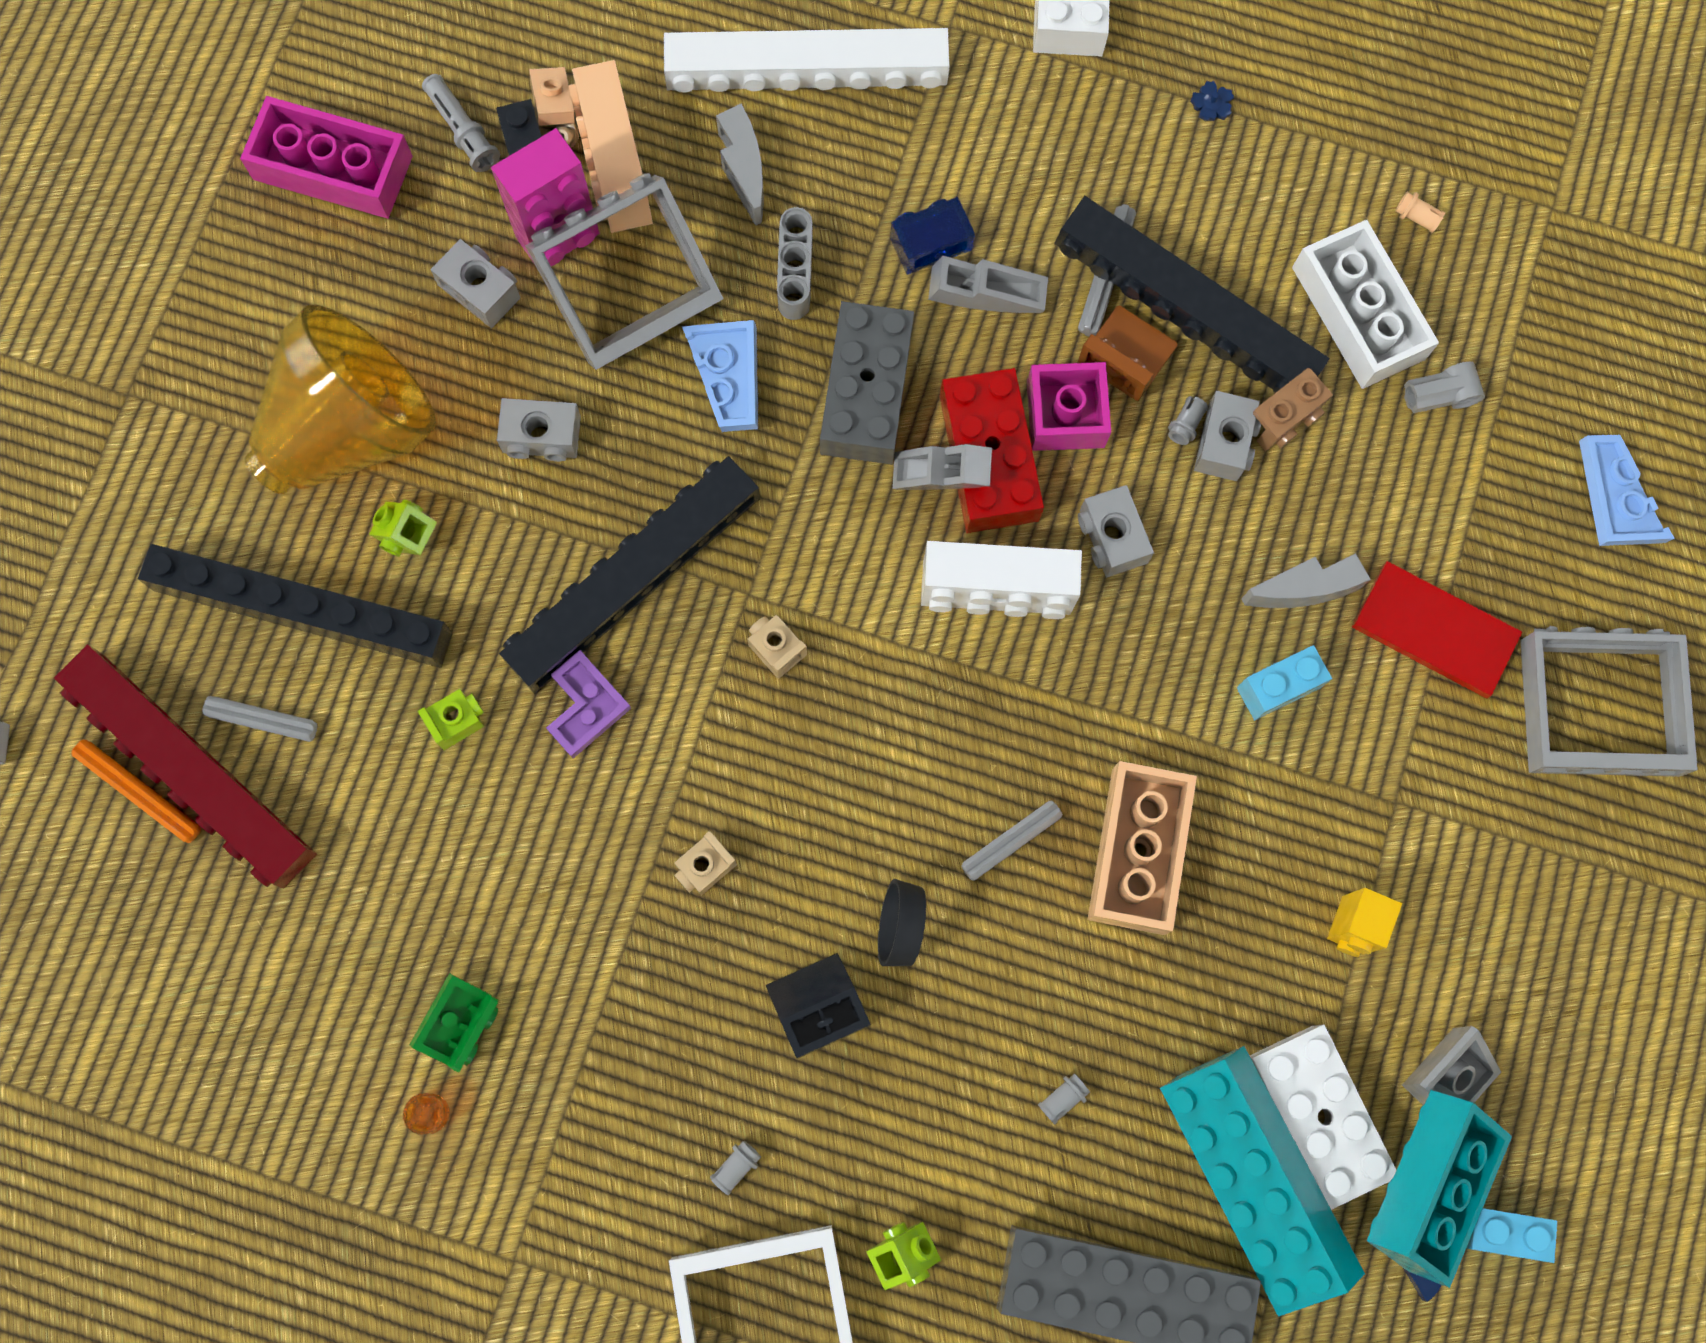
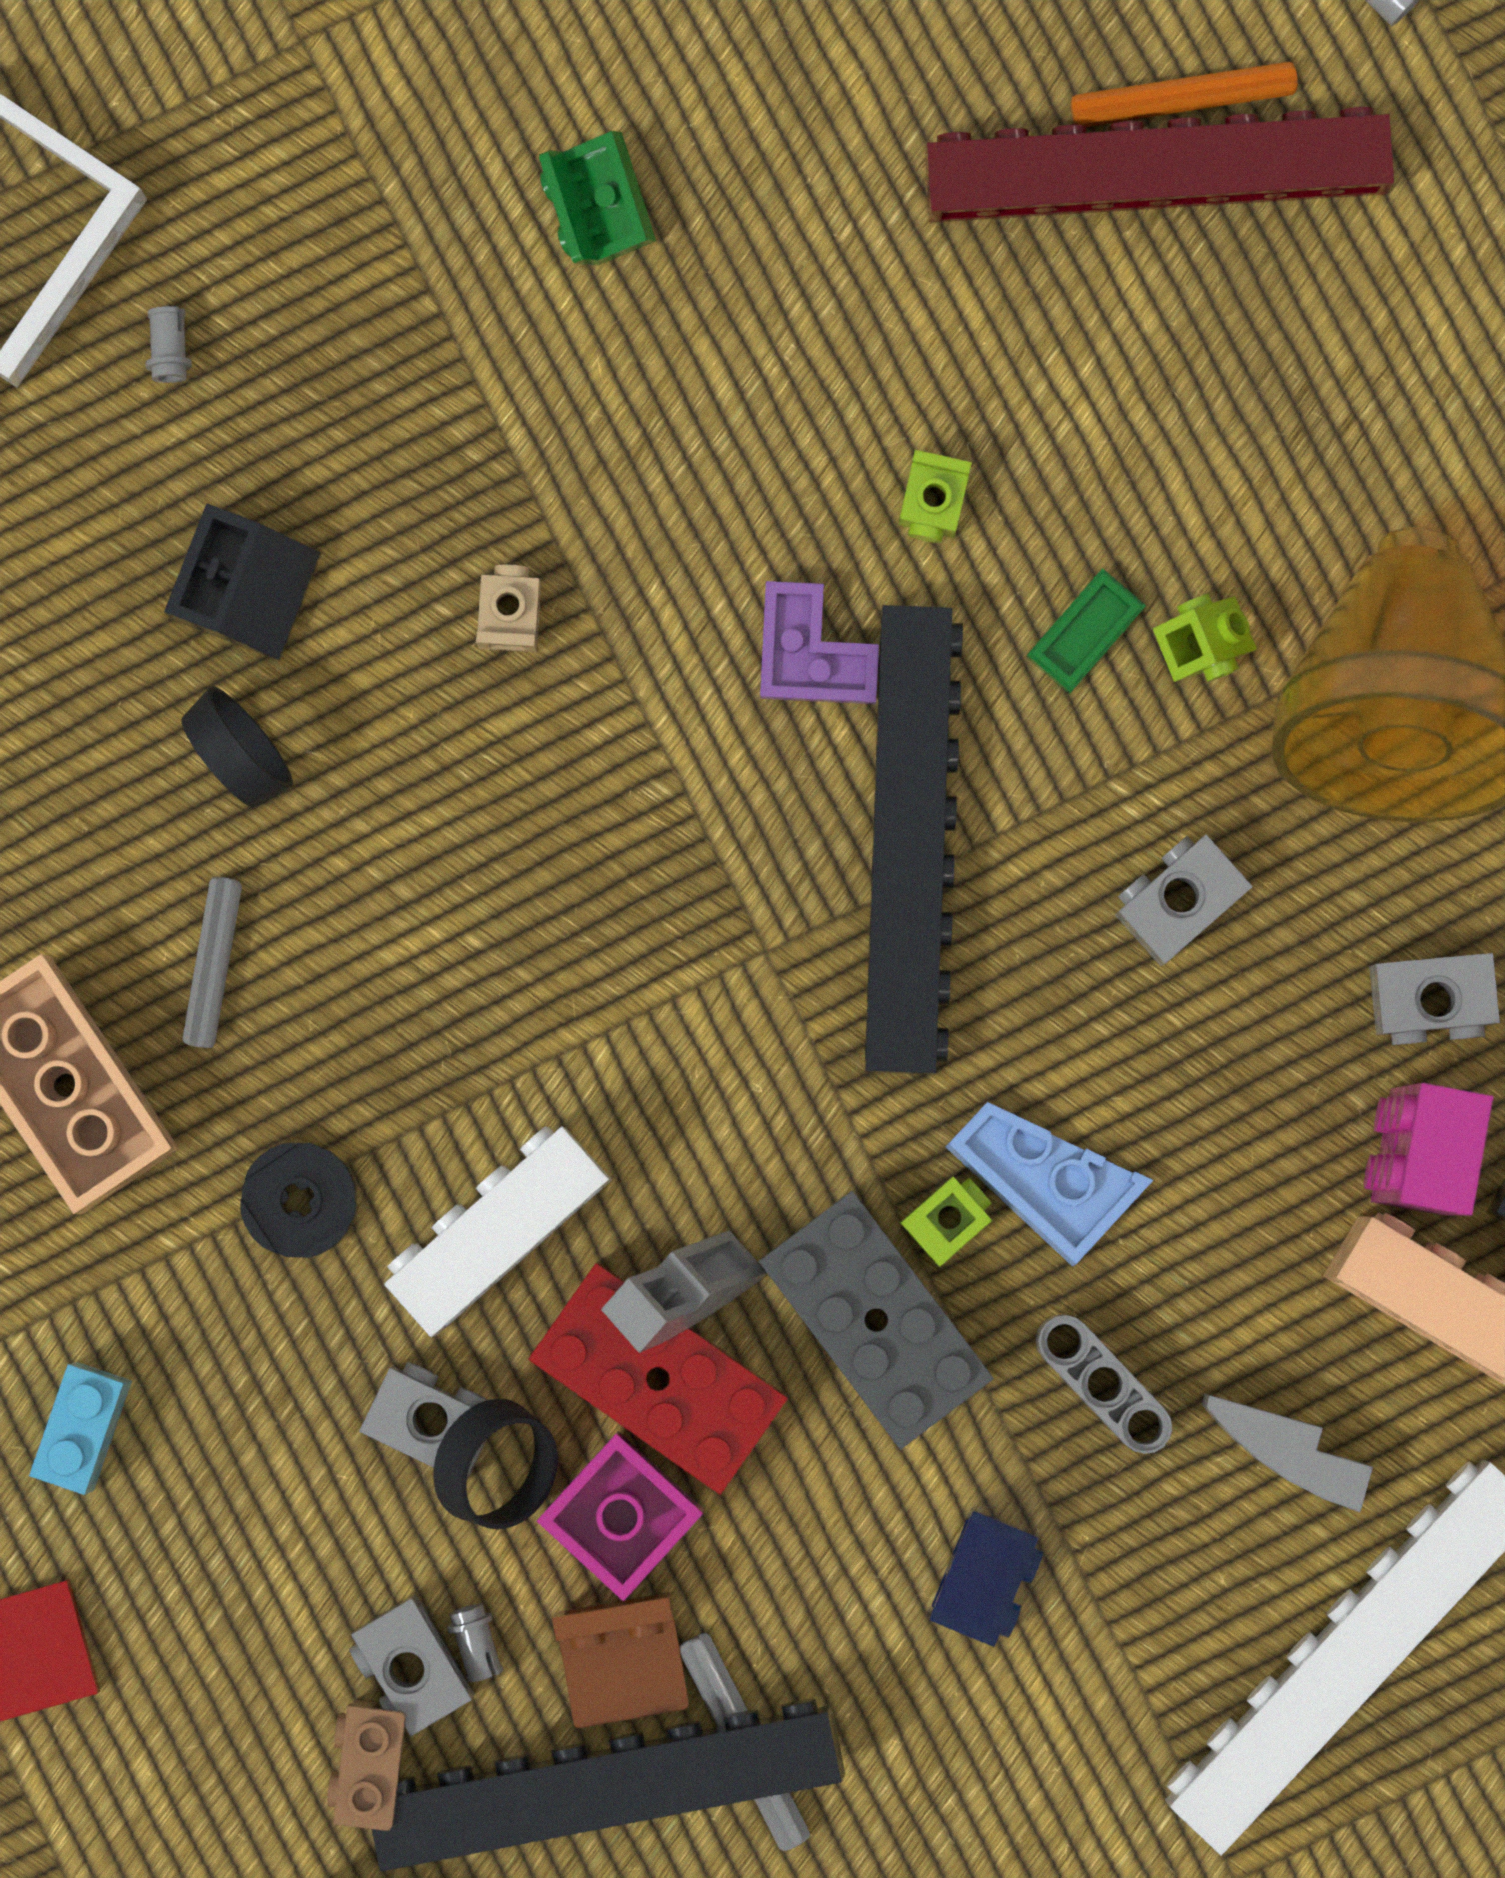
camera: 140 degrees right, 10 degrees up
(260, 718) = (1139, 294): light grey axle -> none
(296, 605) = (1228, 443): black brick -> none
(418, 1117) = (534, 74): clear orange wheel -> none
(452, 591) = (1085, 631): none -> green tile
(657, 321) = (1189, 1141): light grey window -> none
(776, 658) = (650, 925): tan brick -> none
(794, 383) = (942, 1242): none -> lime brick
(987, 286) = (857, 1579): light grey slope -> none
(1096, 677) = (266, 1192): none -> black plate
(1108, 495) = (460, 1447): none -> black tyre
(1309, 584) = (156, 1575): light grey slope -> none

